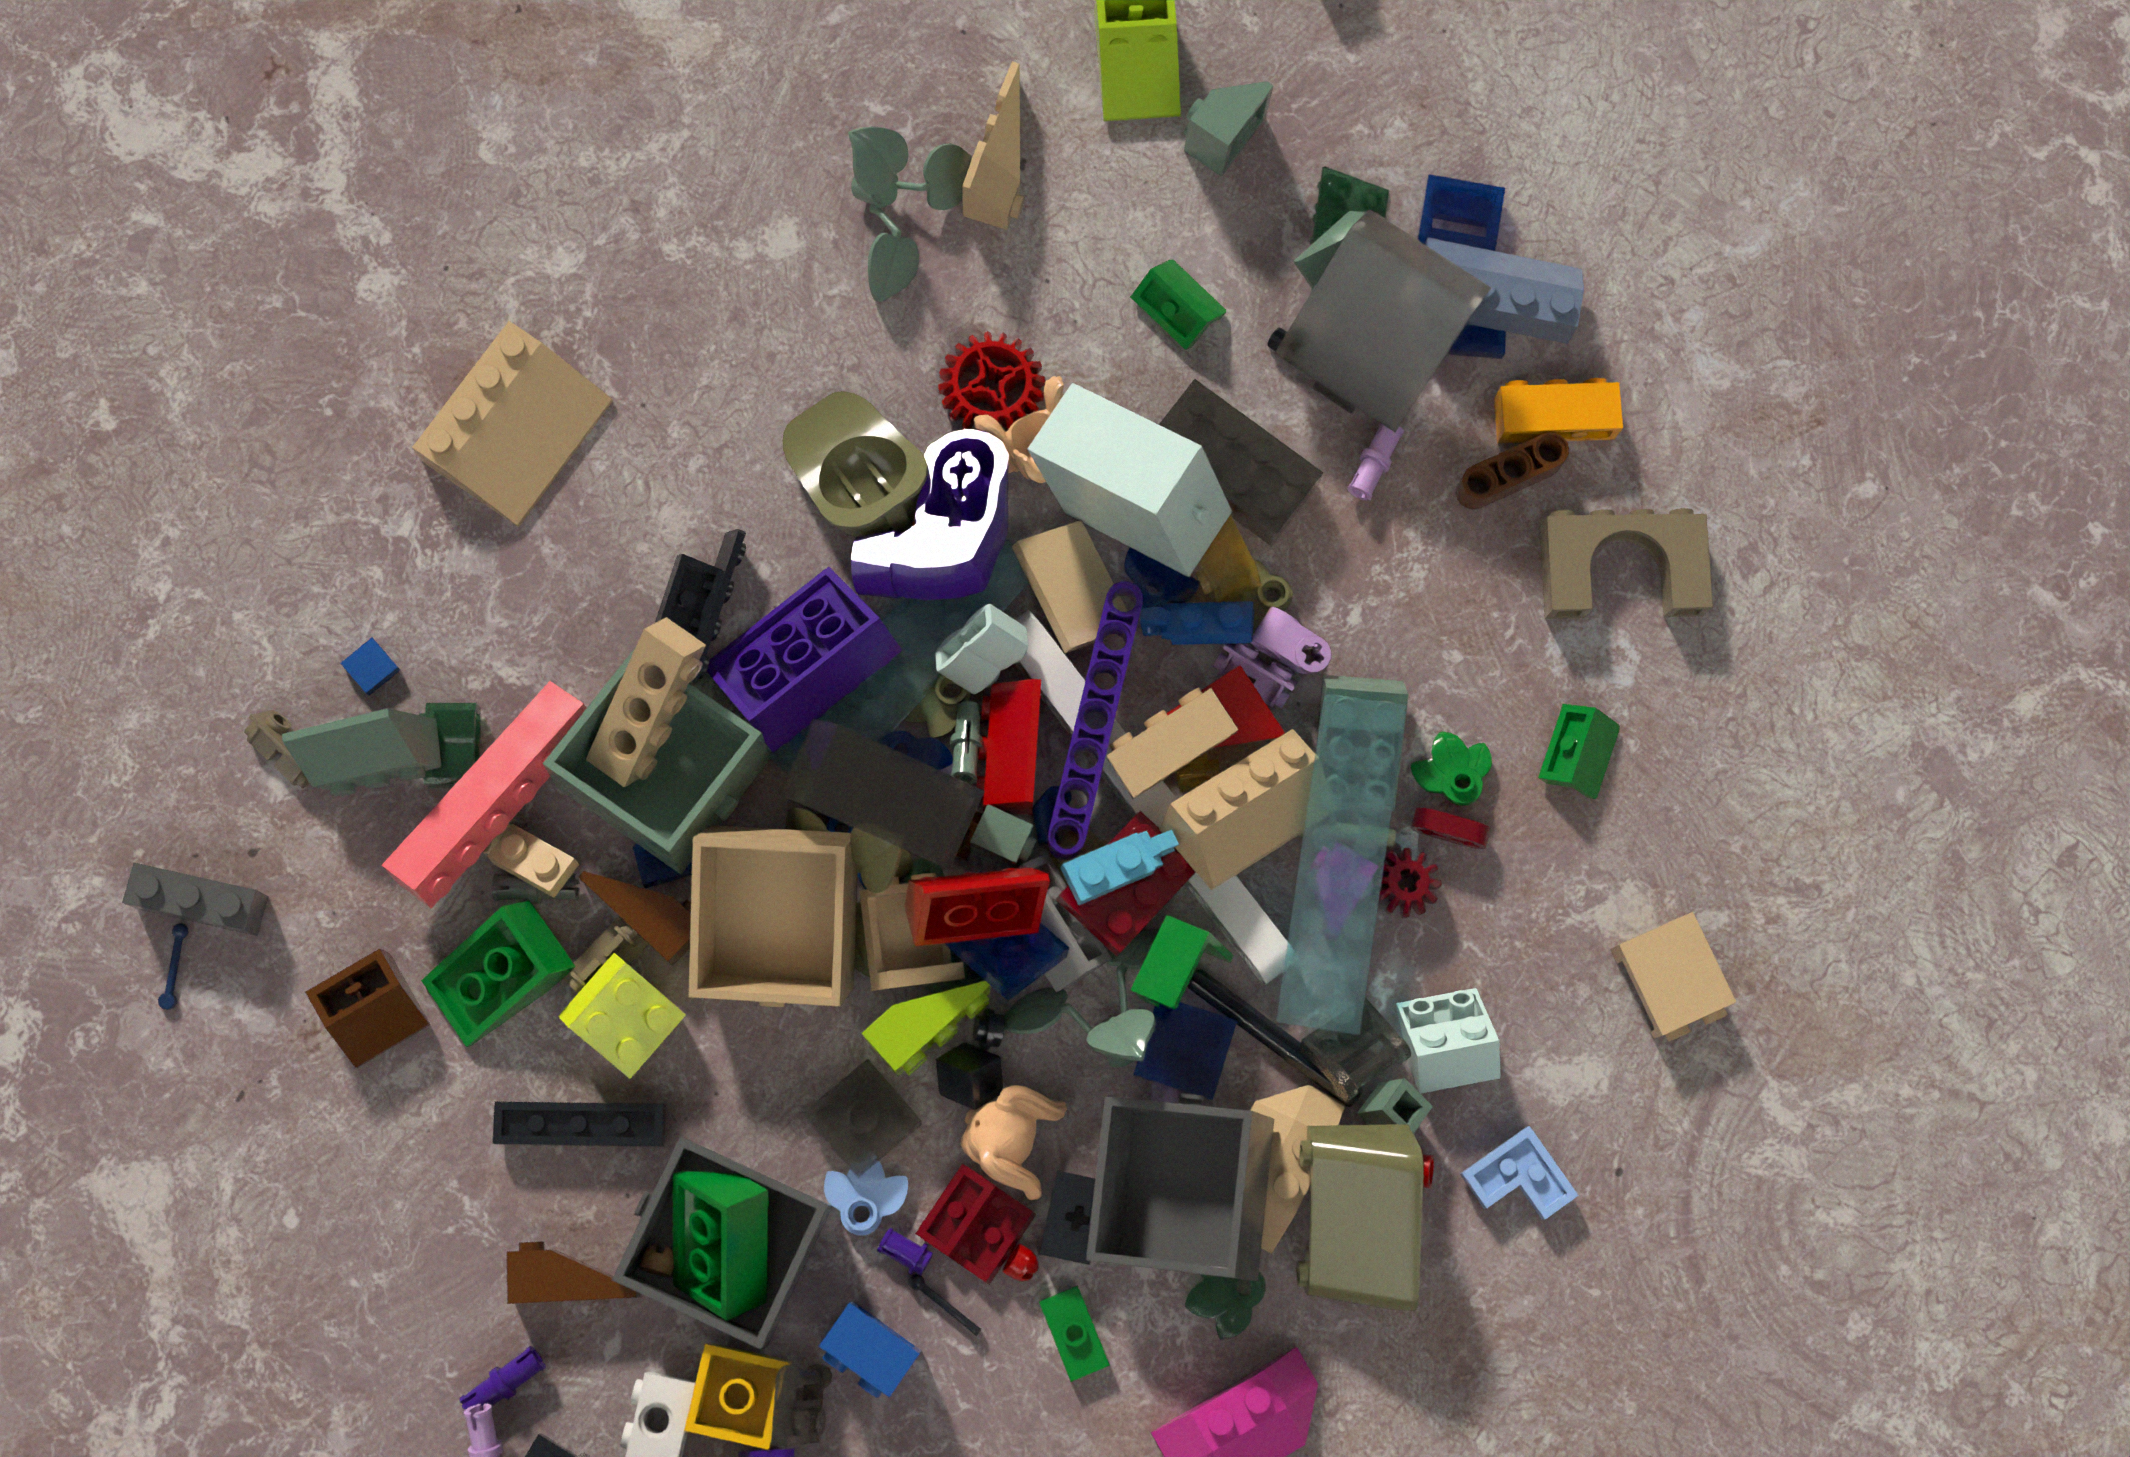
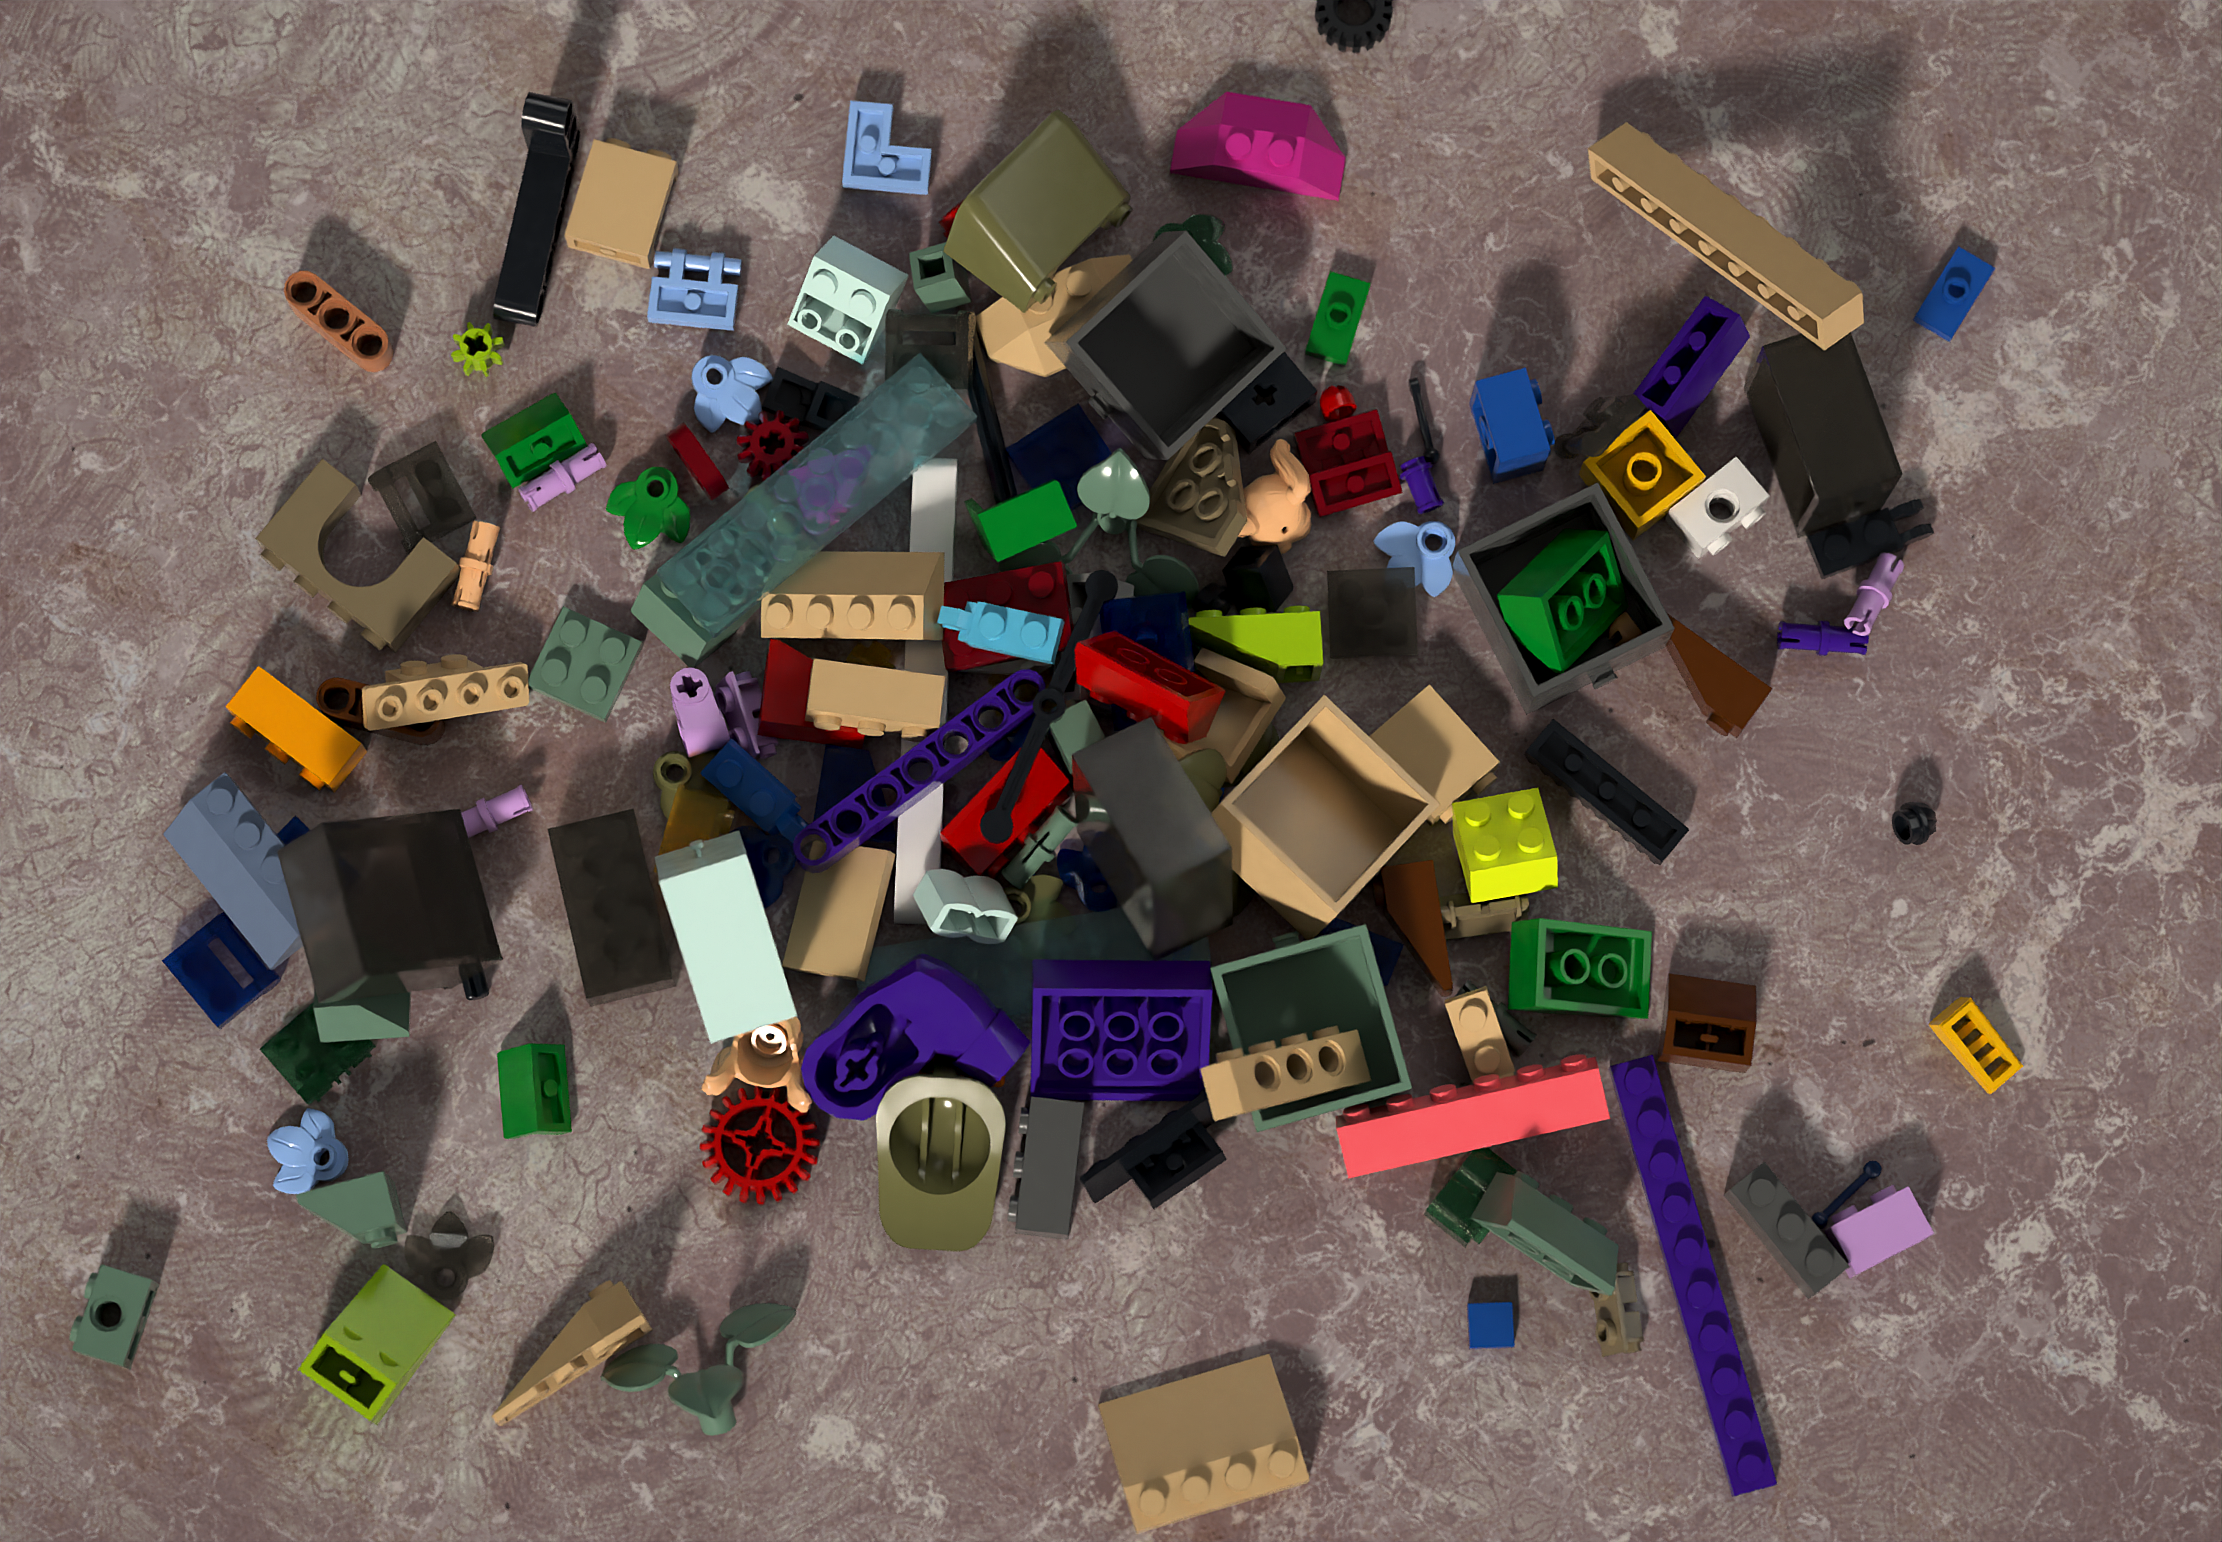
camera: 135 degrees left, 0 degrees up
(125, 954) = (1879, 1230): none -> lavender brick
(180, 1164) = (1953, 1041): none -> yellow slope
(248, 818) = (1692, 1276): none -> dark purple plate
(322, 1291) = (1914, 823): none -> black plate
(732, 1044) = (1437, 751): none -> tan brick
(776, 525) = (1047, 1168): none -> dark grey brick
(1004, 716) = (997, 824): none -> black piece
(1061, 1097) = (1200, 492): none -> dark tan plate
(1144, 158) = (450, 1250): none -> clear smoke plate
(1146, 683) = (841, 774): none -> clear blue wing
(1299, 144) = (301, 1151): none -> light blue plate
(1402, 621) = (584, 664): none -> sand green plate
(1410, 941) = (810, 402): none -> black slope
(1468, 901) = (733, 396): none -> light blue plate
(1482, 510) = (443, 691): none -> tan bracket
(1535, 739) = (562, 477): none -> lavender pin
(1538, 626) = (475, 566): none -> light nougat pin
(1558, 944) = (691, 301): none -> light blue plate
(1614, 656) = (434, 489): none -> clear smoke plate
(1674, 791) = (480, 361): none -> lime gear
(1725, 918) = (552, 145): none -> black beam
(1808, 712) = (330, 303): none -> nougat beam

